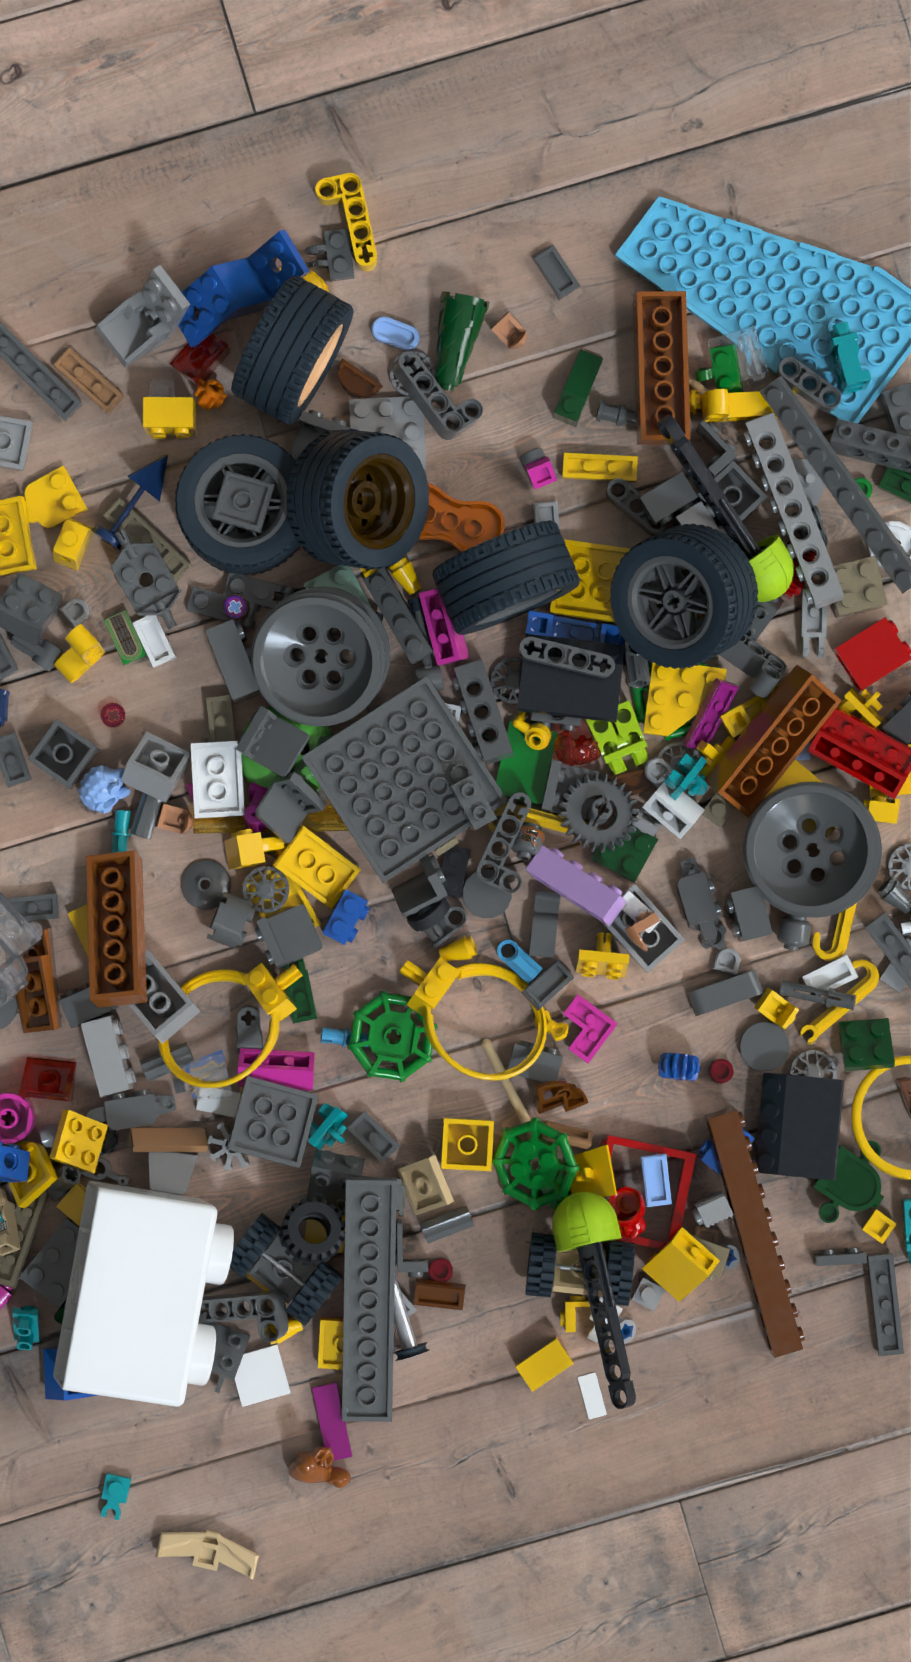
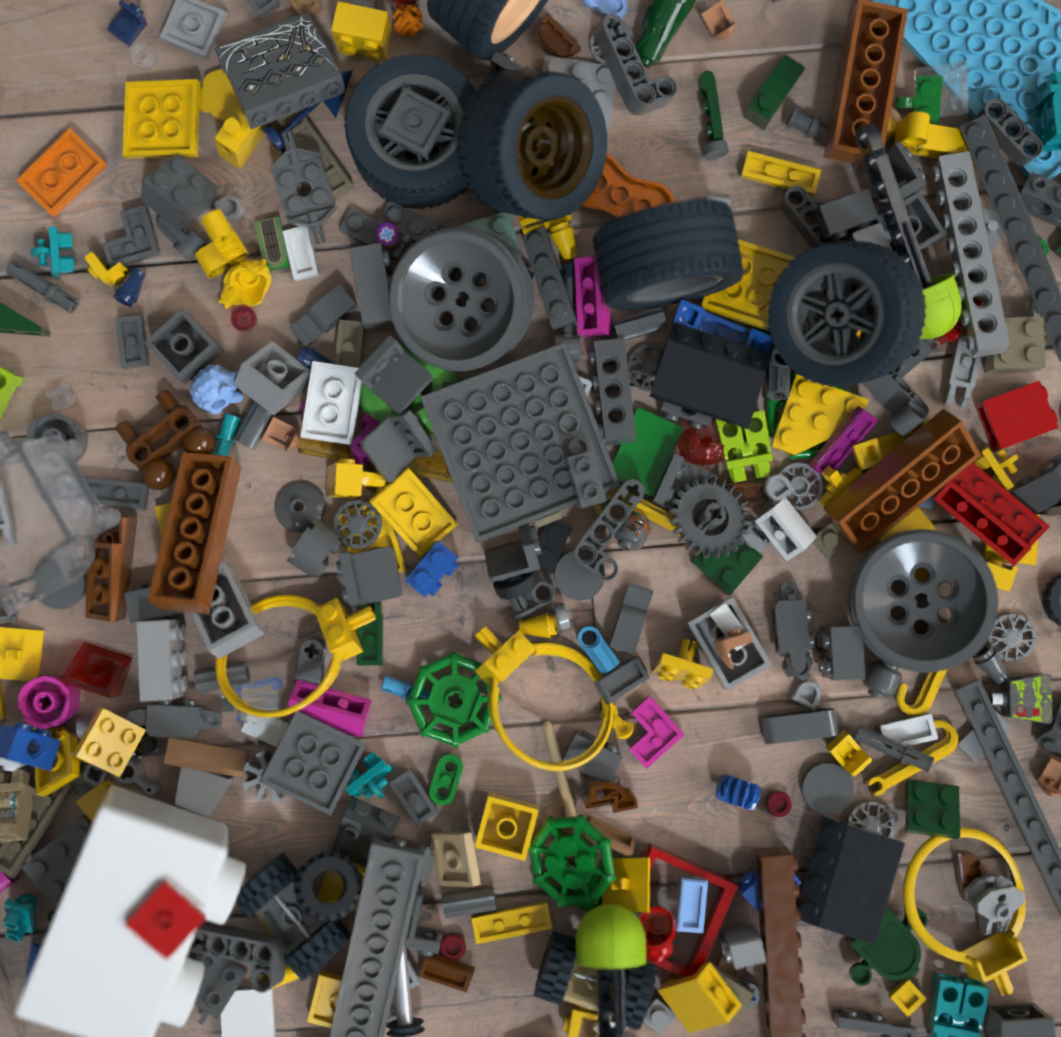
camera: 10 degrees right, 0 degrees up
(63, 847) = (164, 440): none -> reddish brown piece
(100, 471) = (280, 70): none -> dark grey panel
(109, 682) = (246, 284): none -> yellow hair
(177, 1279) = (165, 920): none -> red plate
(184, 739) = (308, 355): none -> dark blue cone
(190, 697) = (324, 315): none -> dark grey piece
(400, 1113) = (446, 778): none -> green plate
(478, 937) = (562, 617): none -> light grey tile
(491, 1235) = (511, 922): none -> yellow plate
(494, 641) = (640, 324): none -> dark grey axle
(520, 417) = (711, 105): none -> dark green hinge
(535, 730) = (662, 420): yellow plate -> none
(541, 472) = (721, 166): dark pink plate -> none
(566, 659) = (713, 348): dark grey beam -> none
(576, 885) = (672, 586): lavender brick -> none
(694, 783) = (808, 504): teal hips -> none

